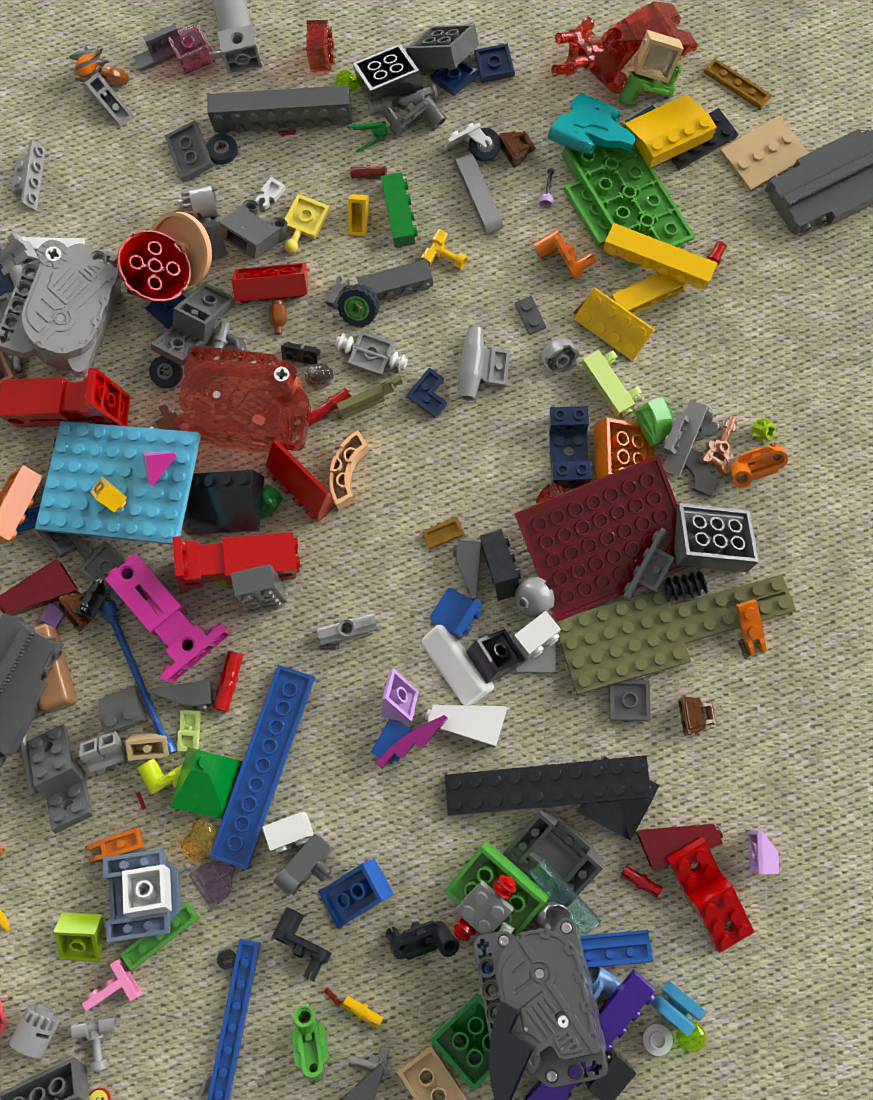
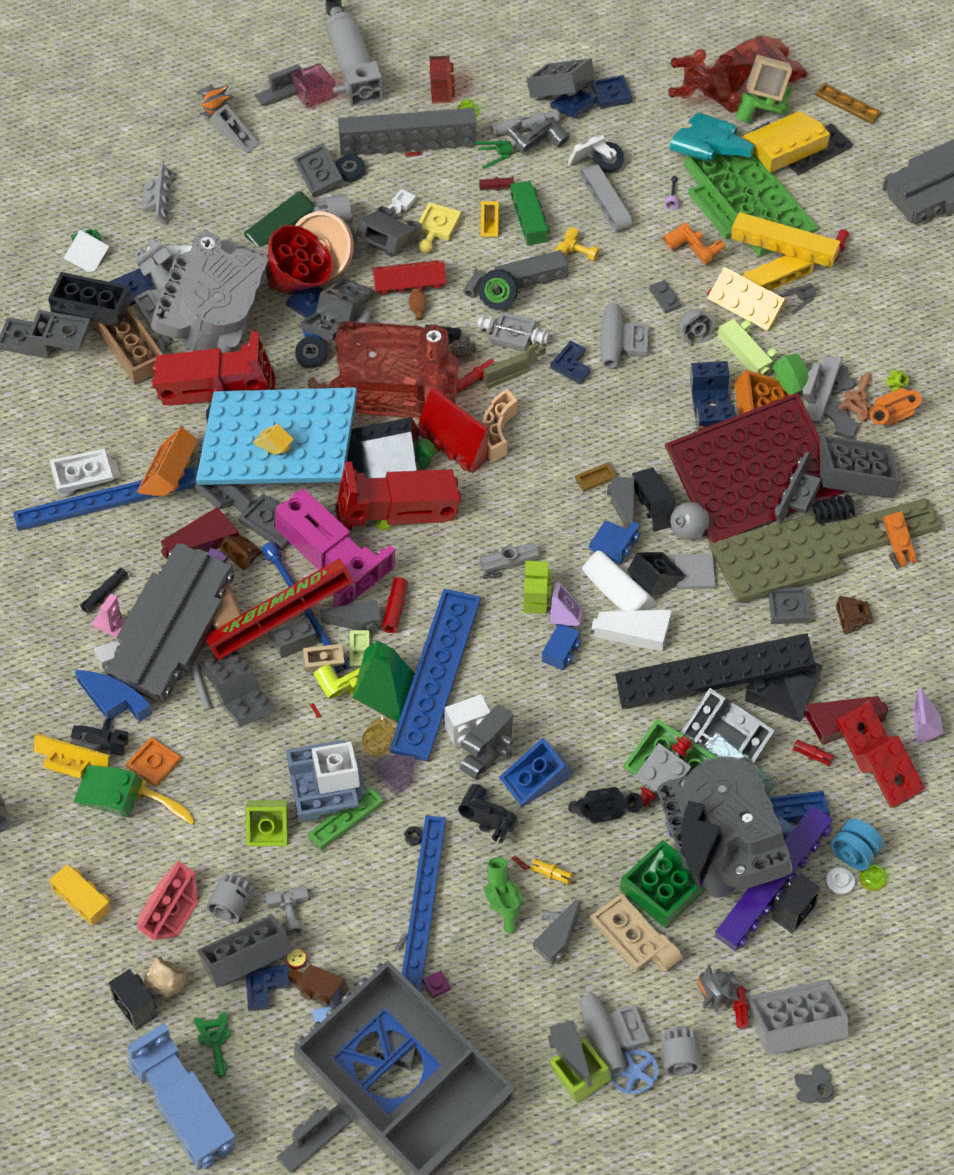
camera: 10 degrees left, 20 degrees down
(93, 599) = (258, 537): black hinge -> none
(103, 695) = (279, 609): none -> red brick
(103, 753) = (288, 665): light grey hips -> none
(114, 75) = (240, 108): dark orange plant -> none
(117, 844) = (296, 741): orange hinge -> none
(124, 981) = (304, 861): bright pink bracket -> none
(148, 209) = (285, 214): none -> dark green piece
(156, 464) = (318, 410): dark pink slope -> none
(259, 588) = (425, 515): dark grey brick -> none
(370, 677) = (537, 587): none -> lime piece
(388, 73) = (511, 97): black slope -> none
(418, 736) = (586, 634): magenta slope -> none
(514, 148) = (639, 159): reddish brown piece -> none
(537, 635) = (694, 548): white brick -> none
(674, 316) = (804, 292): none -> dark grey plant
(763, 153) = (876, 158): tan plate -> none

